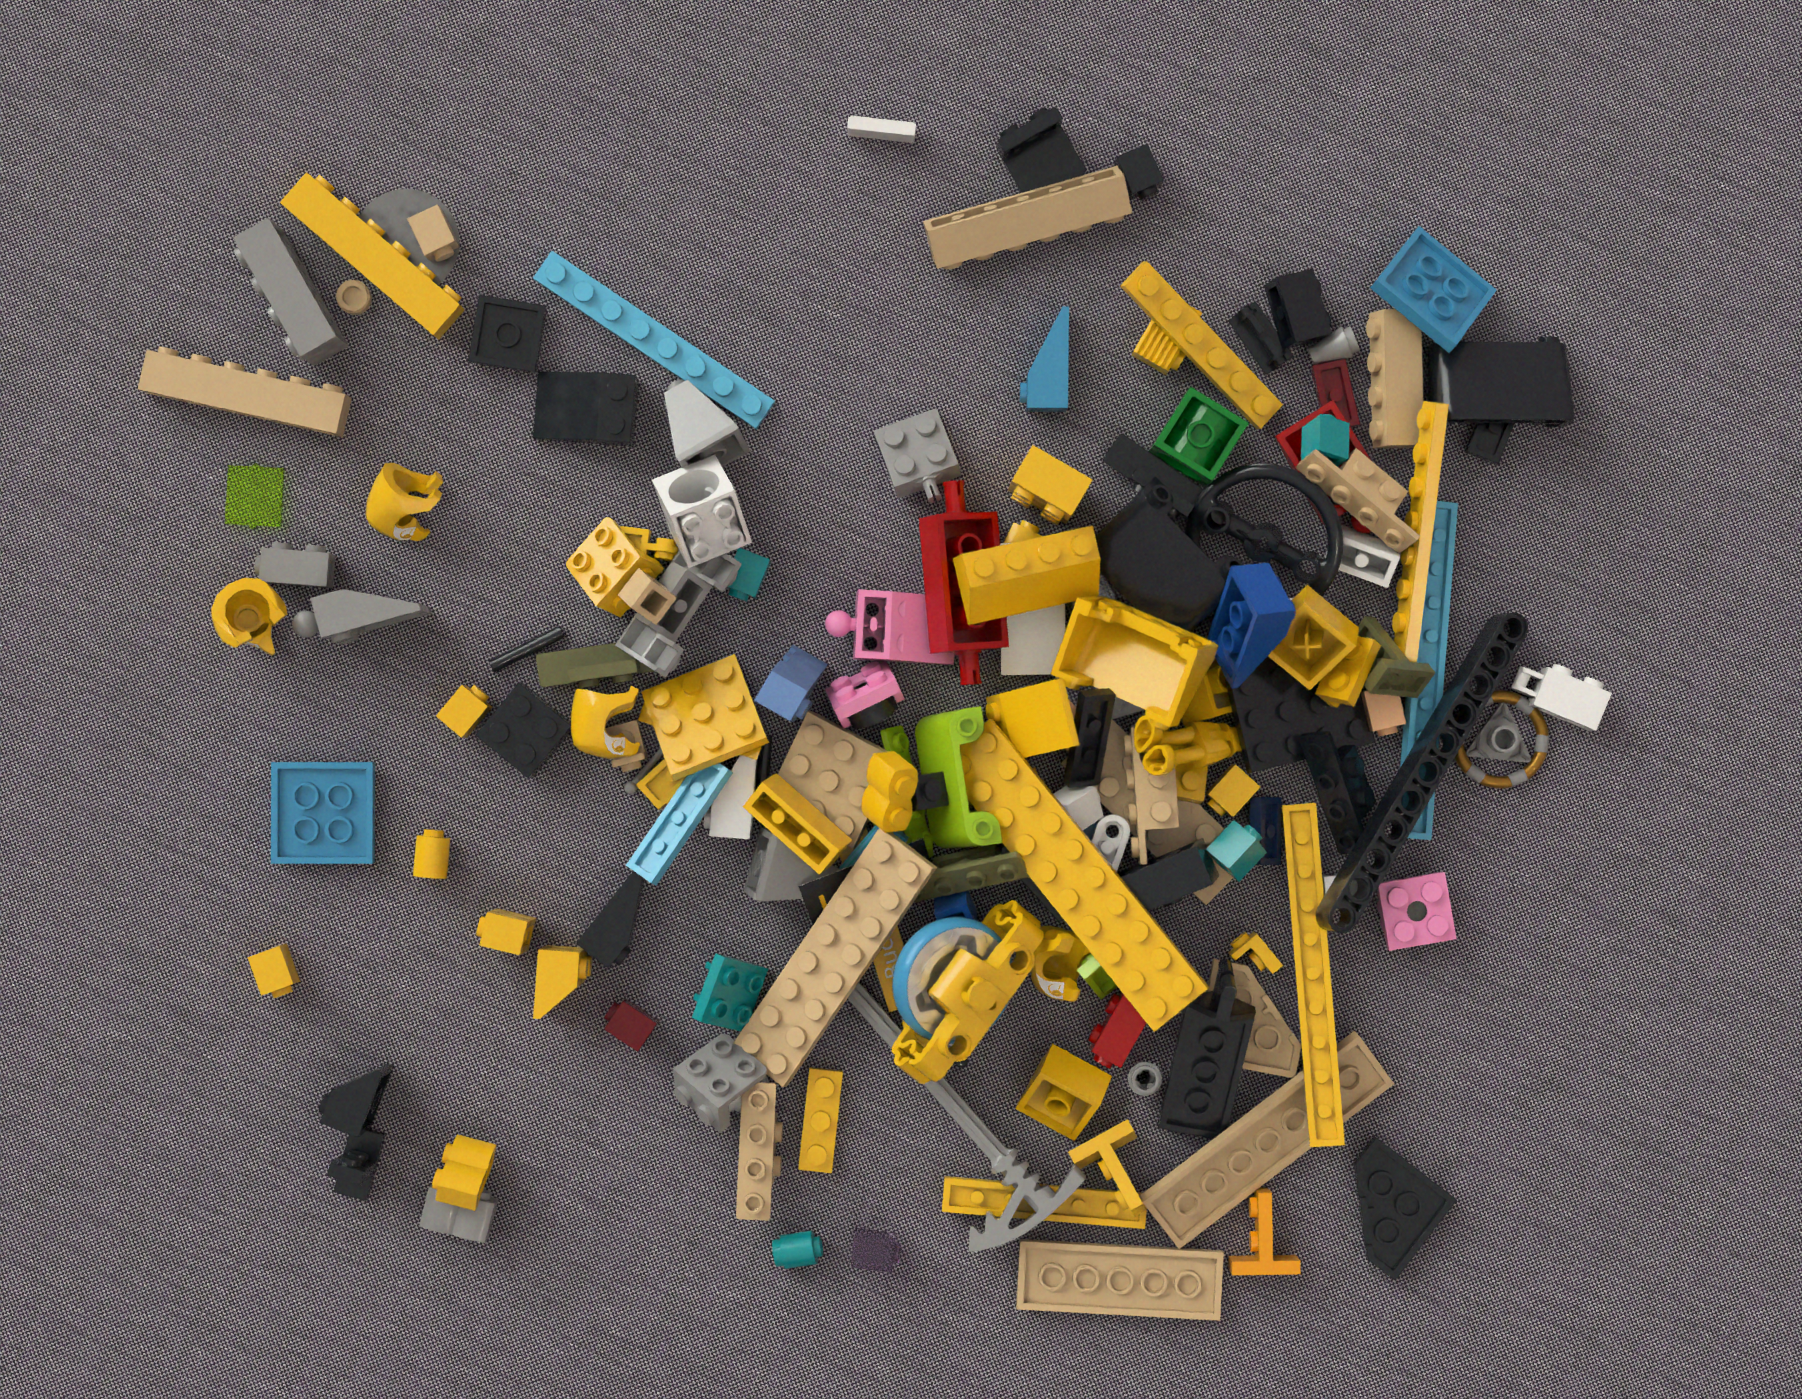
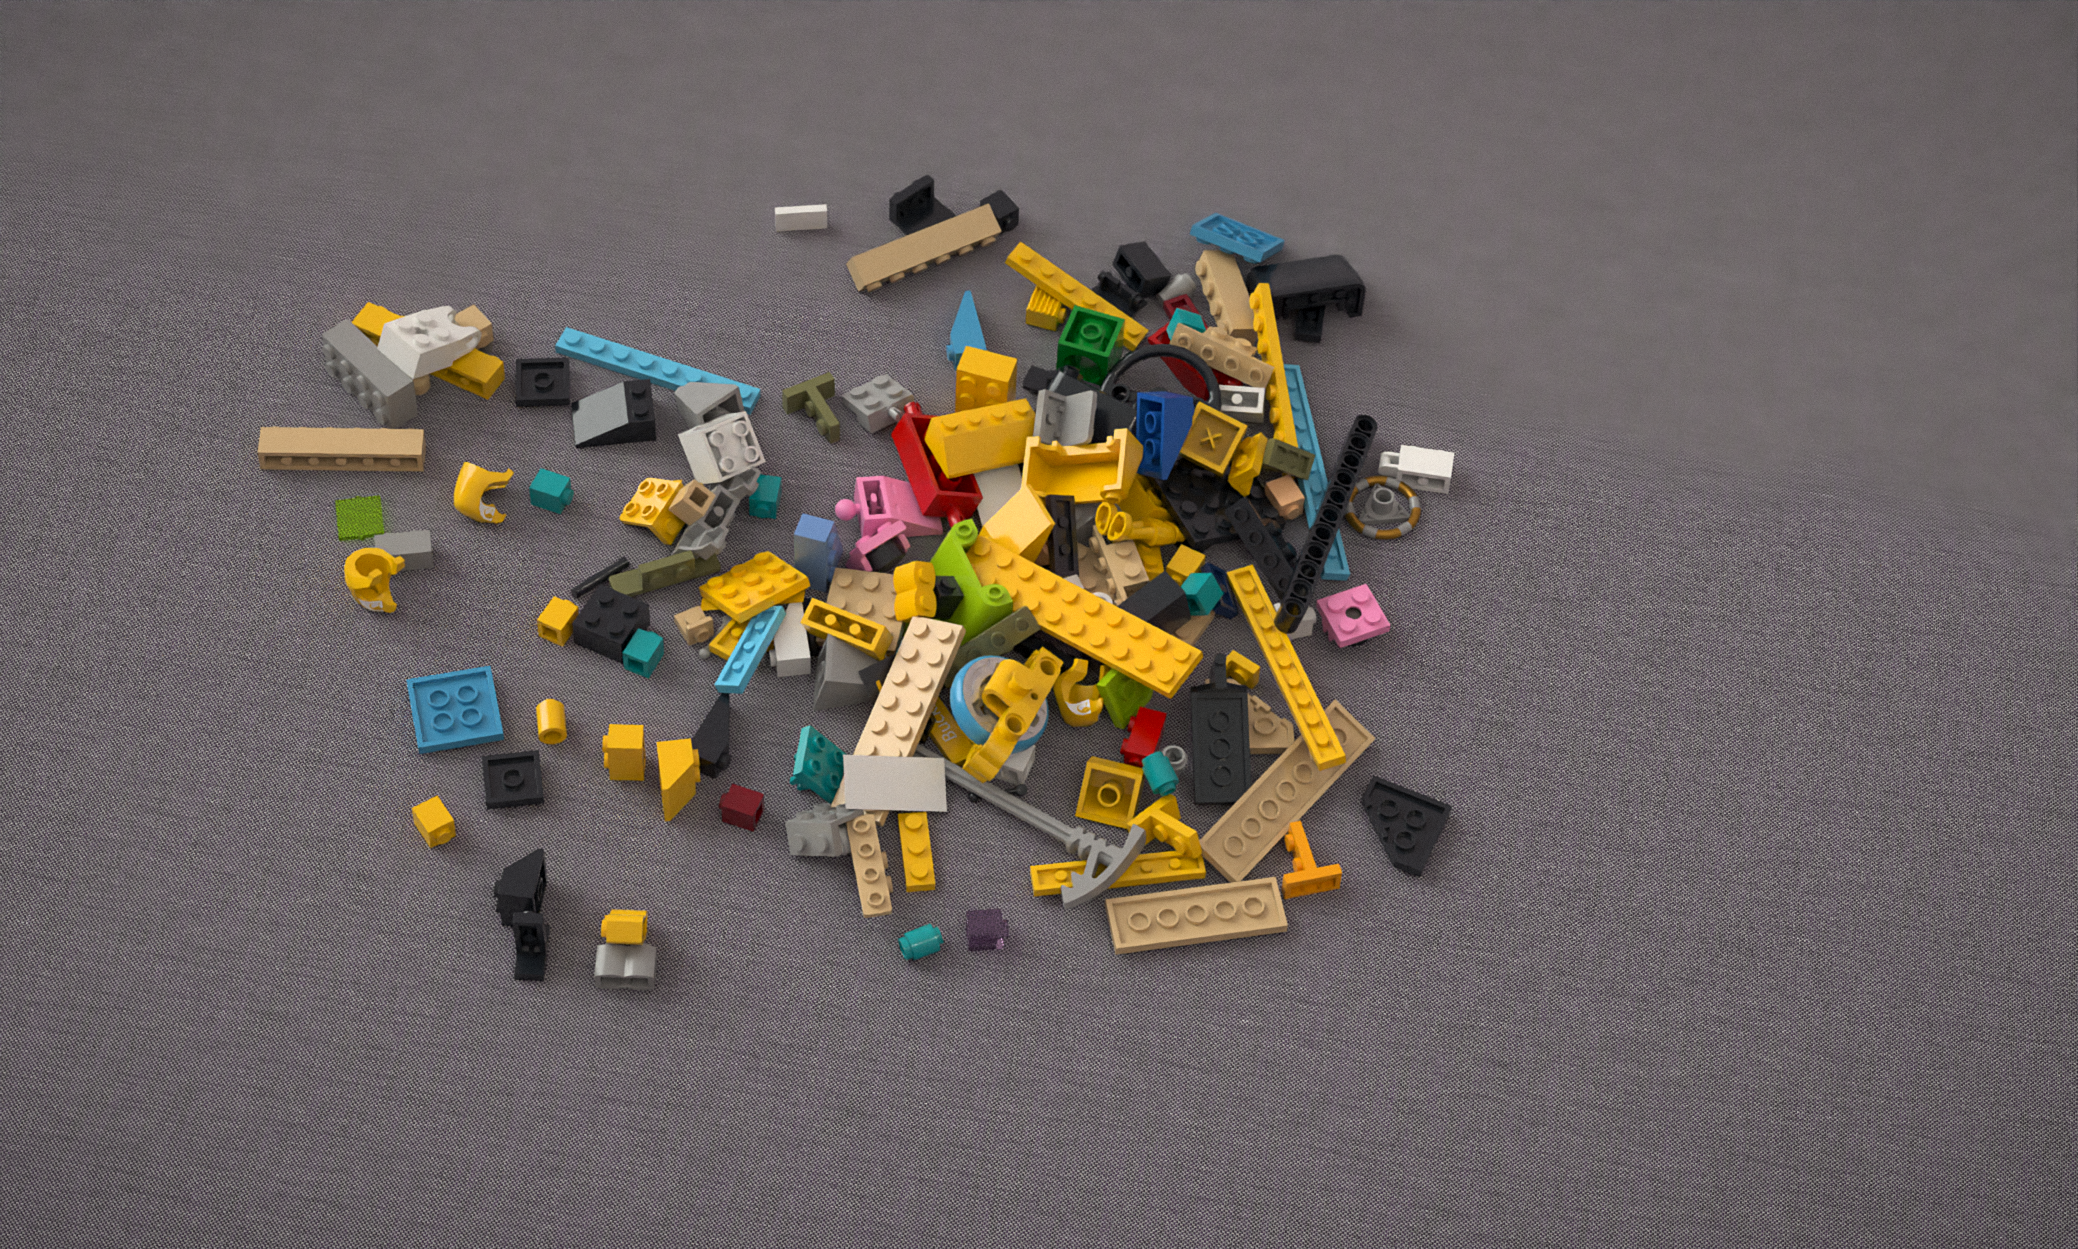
camera: 15 degrees left, 35 degrees down
(348, 613) = (464, 562): light grey slope -> none
(374, 275) = (426, 341): none -> white brick
(374, 927) = (512, 779): none -> black plate
(489, 512) = (551, 491): none -> teal brick
(557, 778) = (643, 653): none -> teal brick
(589, 720) = (665, 600): yellow piece -> none
(809, 1046) = (894, 783): none -> white sticker
(836, 443) = (812, 397): none -> olive bracket
(1122, 1104) = (1160, 774): none -> teal brick
(1133, 576) = (1065, 417): none -> light grey bracket

